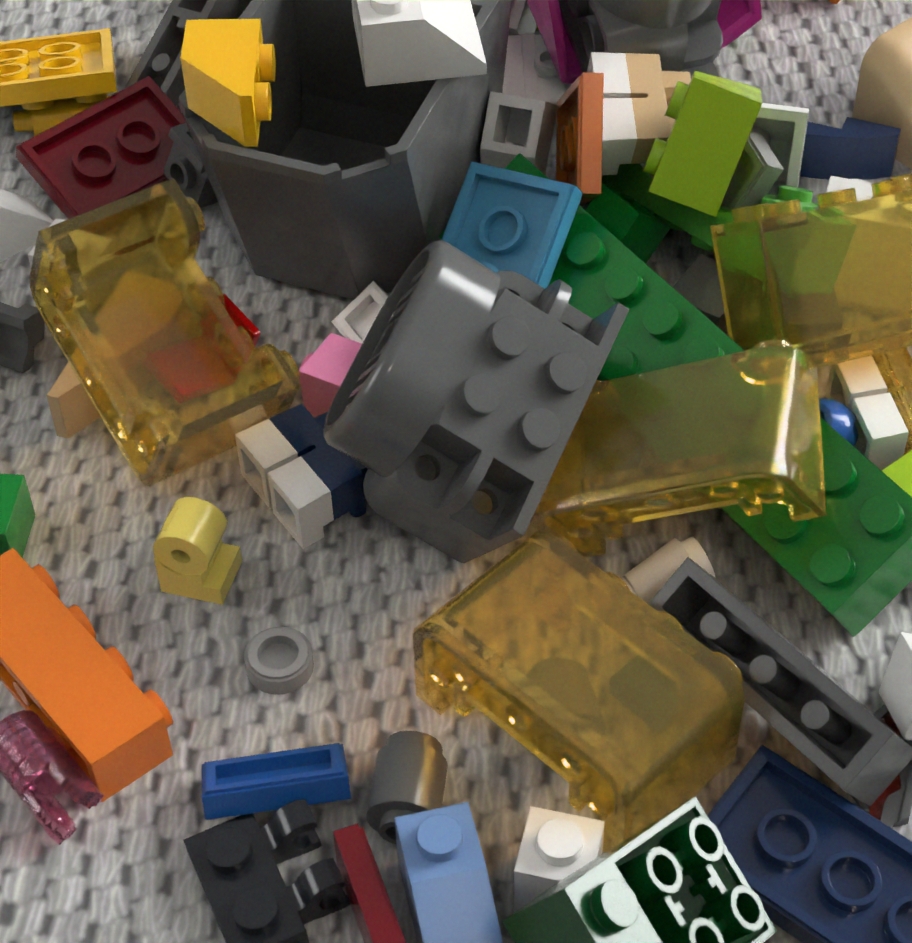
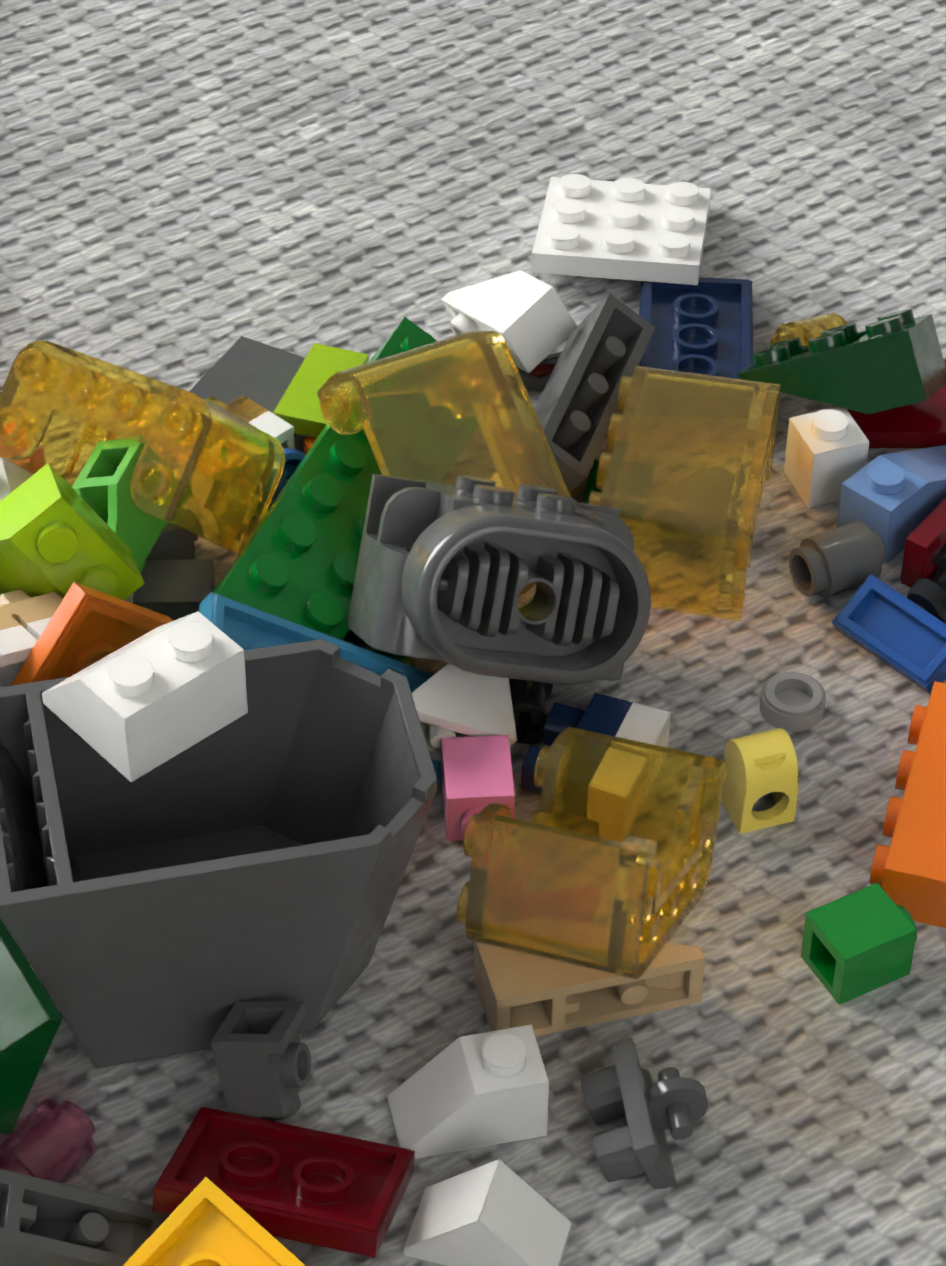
camera: 125 degrees left, 5 degrees down
(229, 75) = (348, 774): yellow slope -> none

